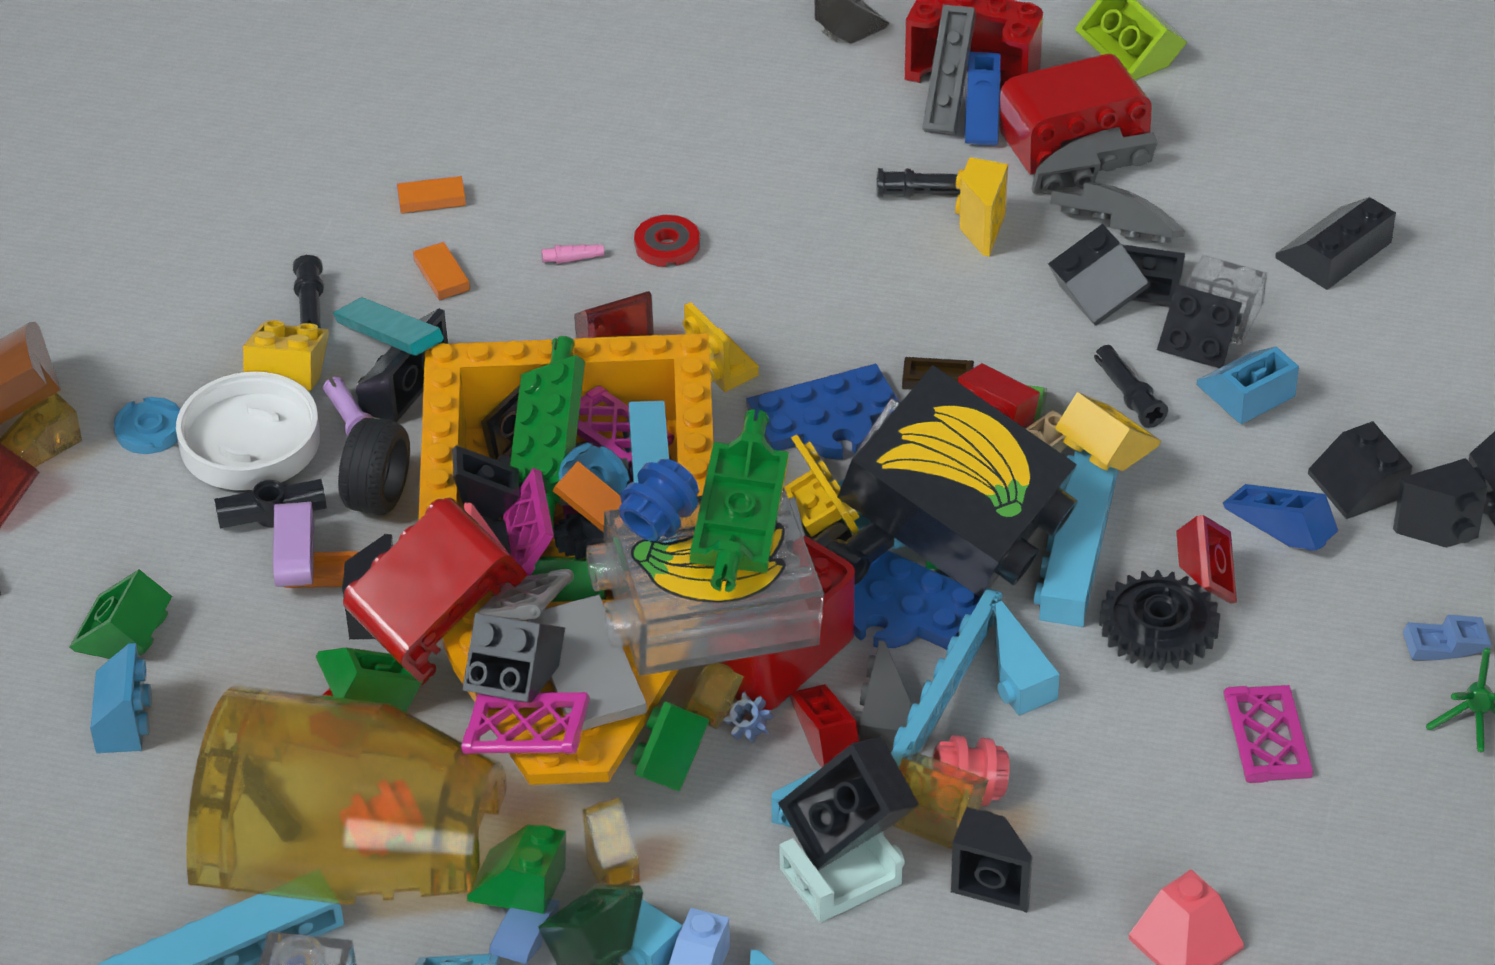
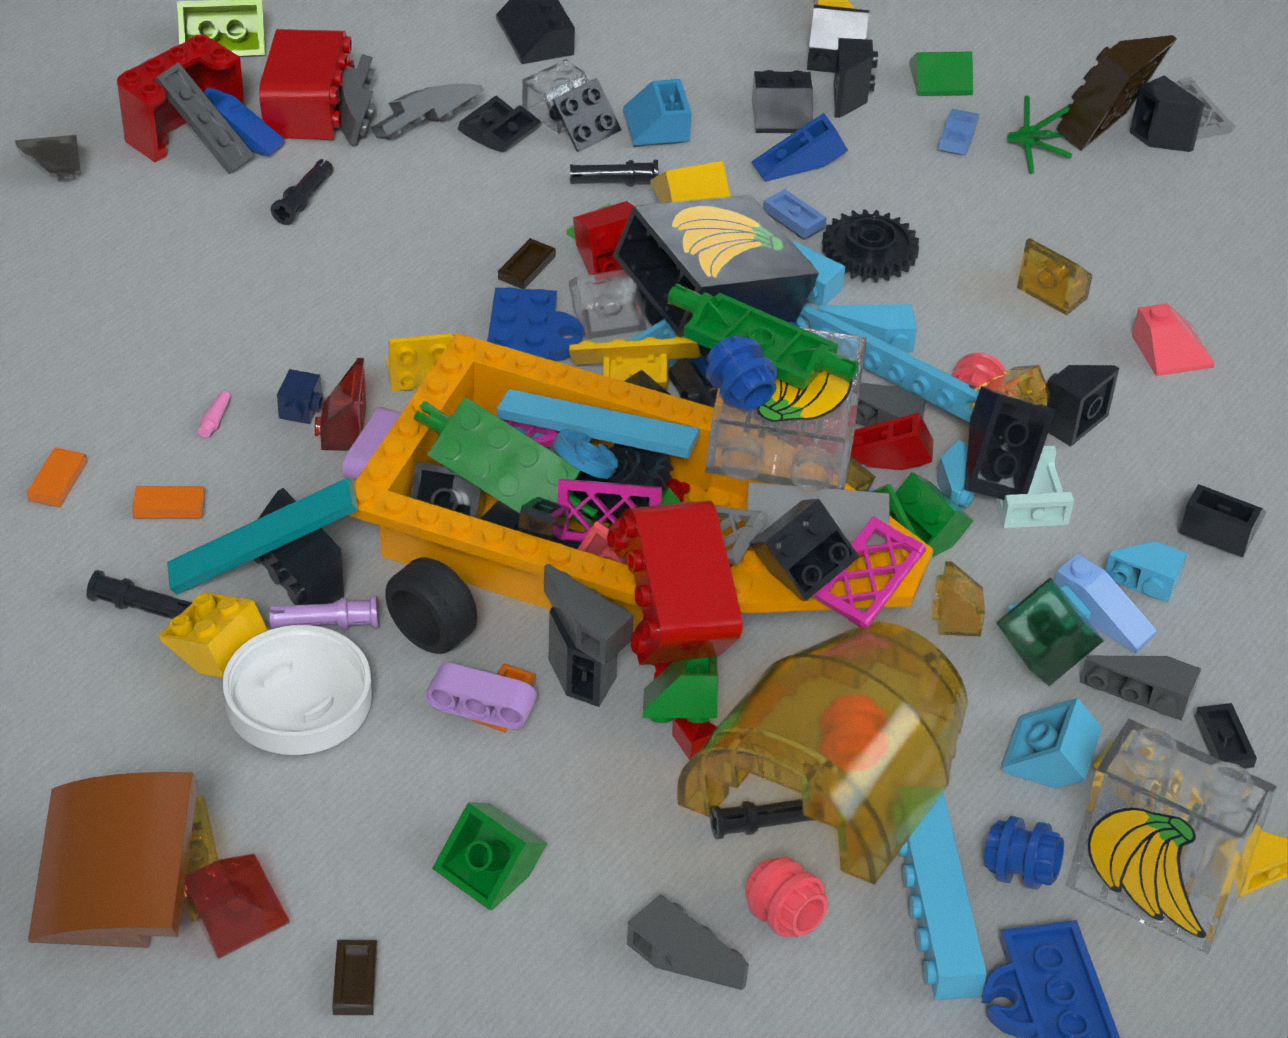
camera: 70 degrees left, 0 degrees up
(77, 773) = (680, 945): none -> dark grey slope
(120, 703) = (610, 874): dark azure slope -> none
(147, 425) = (223, 766): dark azure tile -> none
(152, 830) = (786, 897): none -> coral piece
(259, 504) = (406, 703): black piece -> none
(369, 542) = (590, 619): none -> dark grey slope
(519, 933) = (1010, 688): medium blue slope -> none
(522, 870) = (972, 652): green slope -> none
(587, 494) = (620, 456): orange tile -> none
(618, 285) = (300, 396): none -> dark blue brick
(667, 227) = (254, 341): red tile -> none
(731, 788) = (932, 513): none -> green slope
(982, 201) = (372, 163): yellow slope -> none
(1098, 274) = (496, 138): slope -> none
(1162, 550) = (794, 213): none -> medium blue plate
(1207, 556) = (842, 191): red slope -> none
(1215, 786) = (1053, 278): none -> clear yellow slope
(1276, 768) = (991, 228): dark pink window -> none

